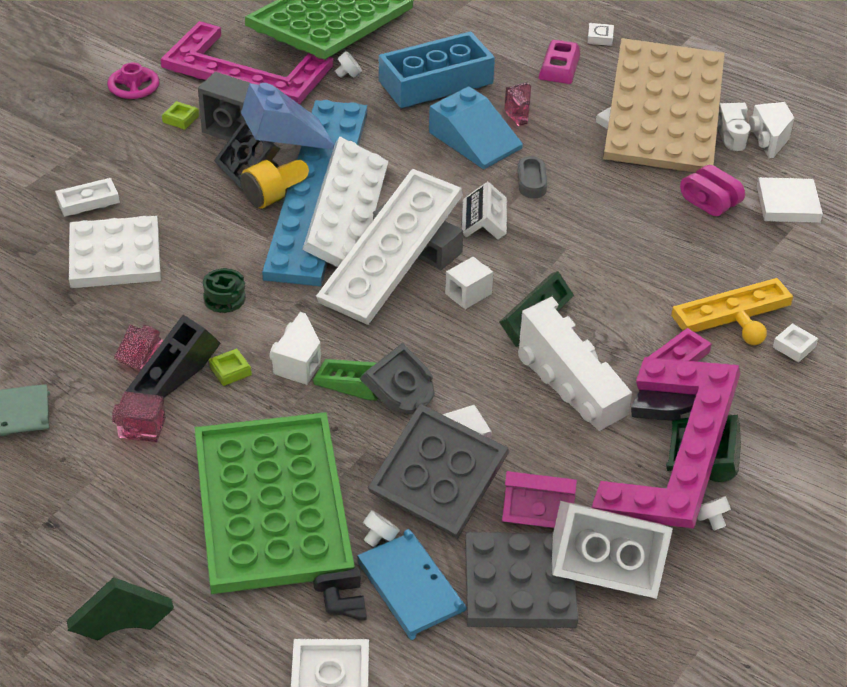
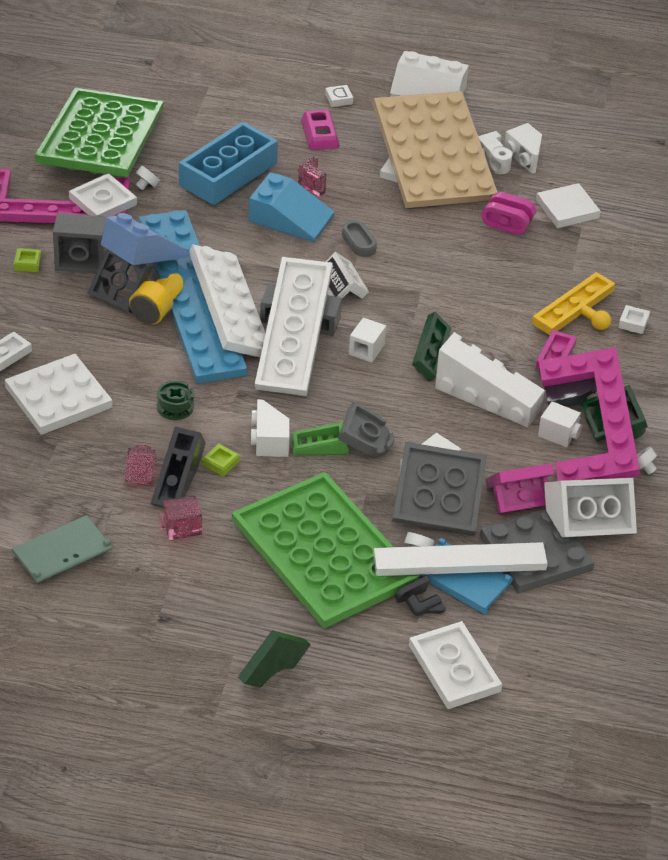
camera: 25 degrees left, 0 degrees up
(288, 71) = (103, 197): none -> white tile
(412, 562) = (459, 559): none -> white tile
(632, 438) = (560, 424): none -> white brick
(707, 31) = (427, 75): none -> white slope

